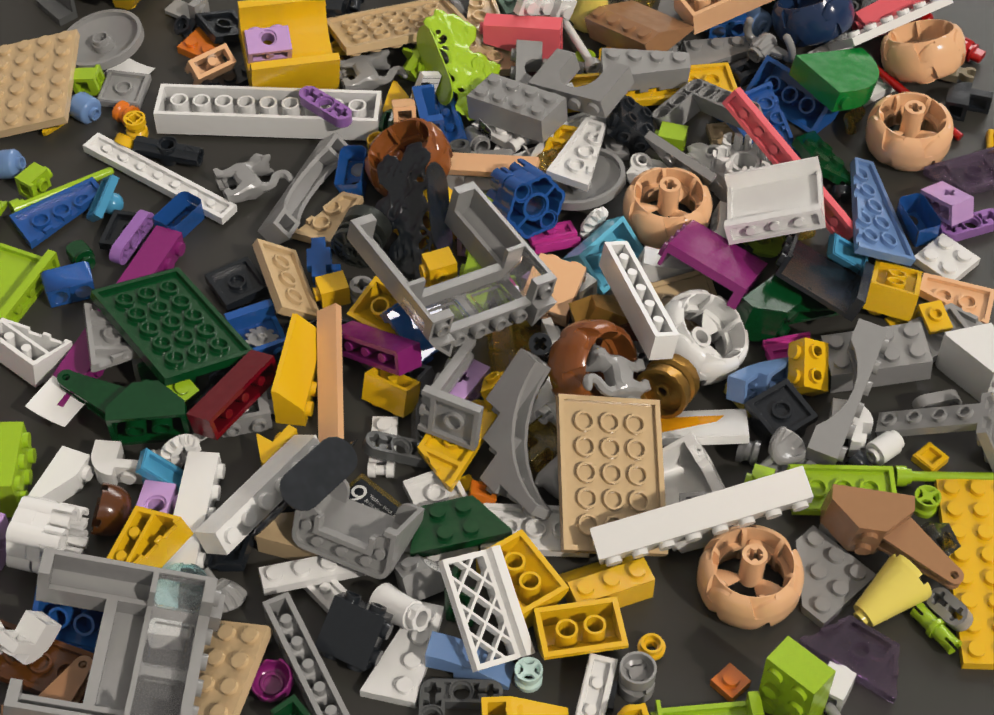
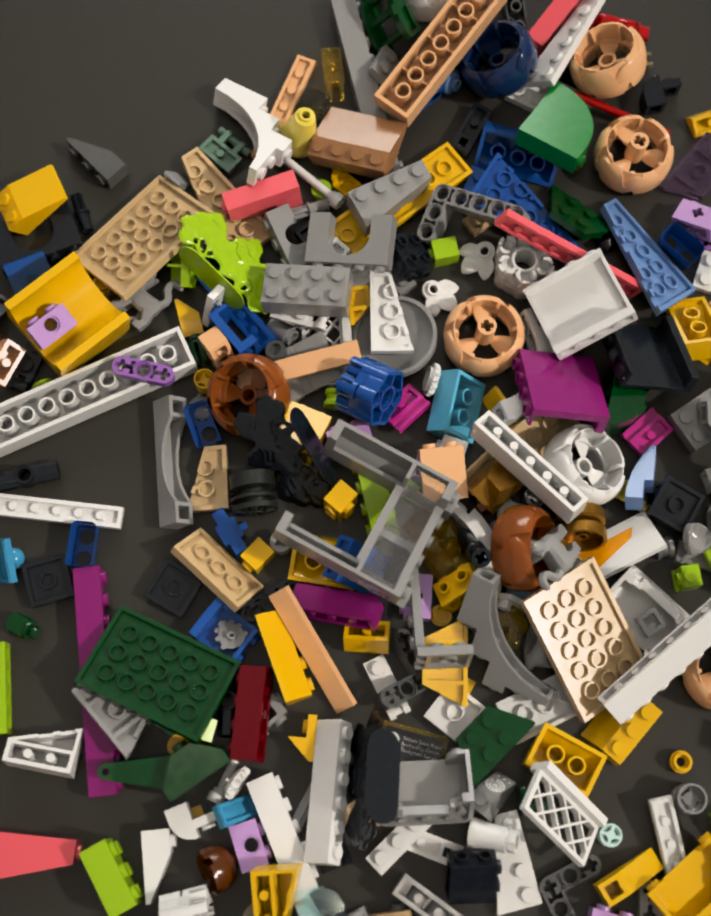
camera: 30 degrees left, 25 degrees up
(46, 400) = (101, 801): white sticker -> none
(68, 283) = (34, 664): blue piece -> none
(131, 237) = (60, 593): medium lavender beam -> none
(234, 592) = (349, 886): light grey piece -> none
(246, 178) = (118, 478): light grey animal -> none
(449, 655) = (548, 853): medium blue slope -> none
(478, 490) = (487, 696): orange plate -> none
(547, 158) = (358, 332): clear yellow arm -> none
(579, 628) = (632, 785): yellow slope -> none
(676, 158) = (465, 282): light grey wing -> none
(716, 50) = (427, 129): light grey wing -> none
(767, 44) = (473, 112): light grey piece -> none
(808, 366) = (673, 449): yellow brick -> none
(842, 252) = (645, 315): dark azure tile -> none

